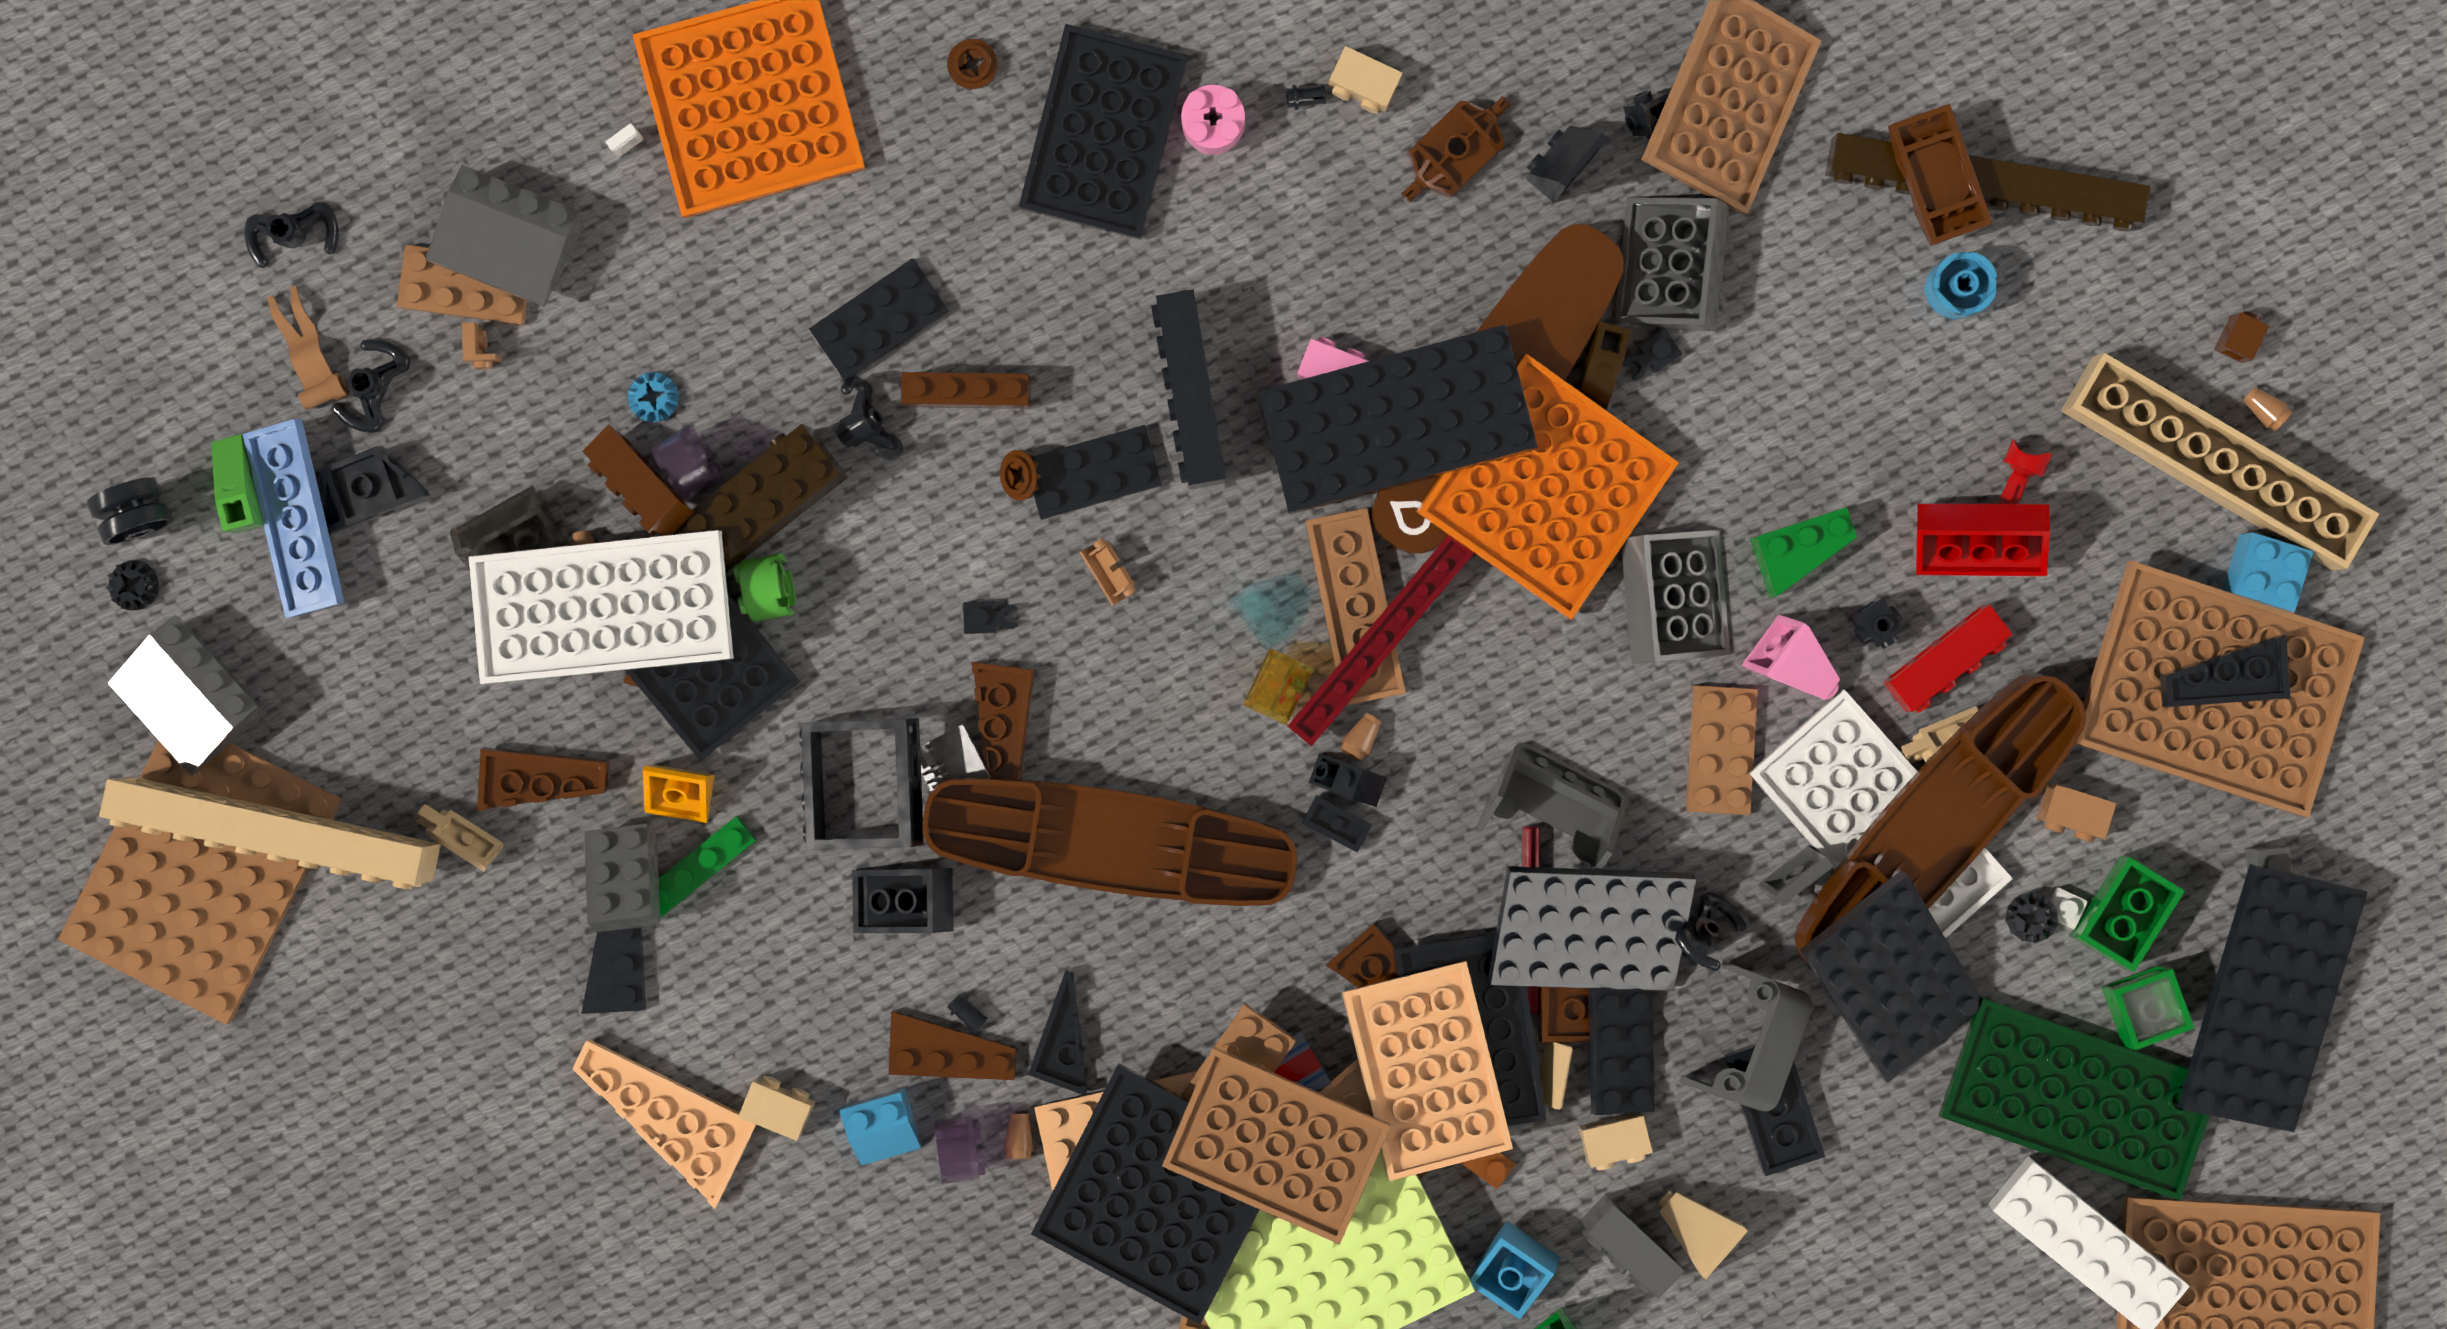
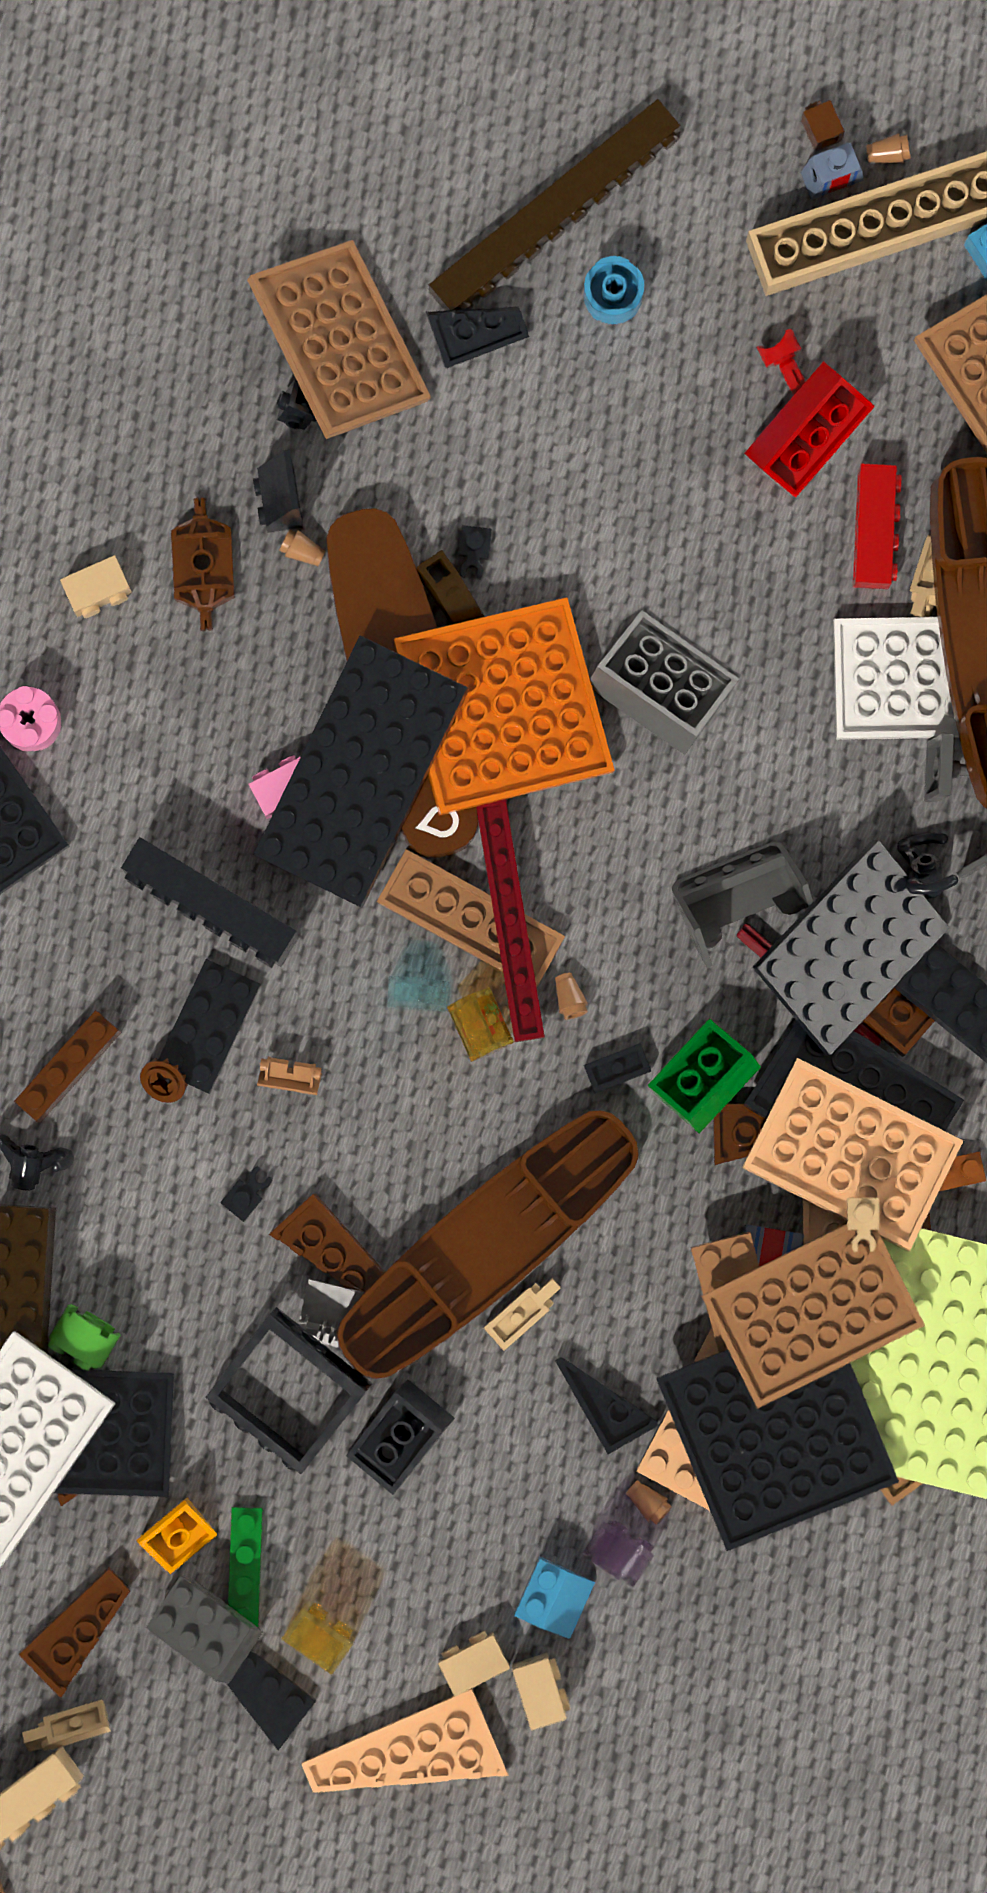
camera: 55 degrees left, 5 degrees down
(692, 972) = (319, 1637): none -> clear yellow brick
(798, 1178) = (539, 1690): none -> tan brick
(941, 1051) = (532, 1508): reddish brown wing -> none
(966, 1012) = (523, 1460): black pin -> none
(1080, 913) = (521, 1313): none -> tan hinge
(1305, 96) = (70, 638): black pin -> none
(1347, 780) = (592, 1032): black slope -> none
(1382, 1124) = (863, 1217): none -> tan plate
(1389, 898) = (704, 1076): none -> green brick
(1535, 215) = (301, 548): none -> medium nougat cone
(1555, 1072) = (936, 1065): tan slope -> none
(1672, 263) = (419, 480): dark grey slope -> none
(1721, 750) = (803, 744): medium nougat plate -> none
(1794, 657) = (781, 634): bright pink slope -> none
(1800, 548) = (703, 565): green wedge -> none
(1830, 203) = (475, 332): none -> black wing
(1866, 623) = (797, 560): black brick -> none
(1939, 175) = (520, 239): reddish brown slope -> none
(2213, 379) = (834, 171): none -> sand blue torso

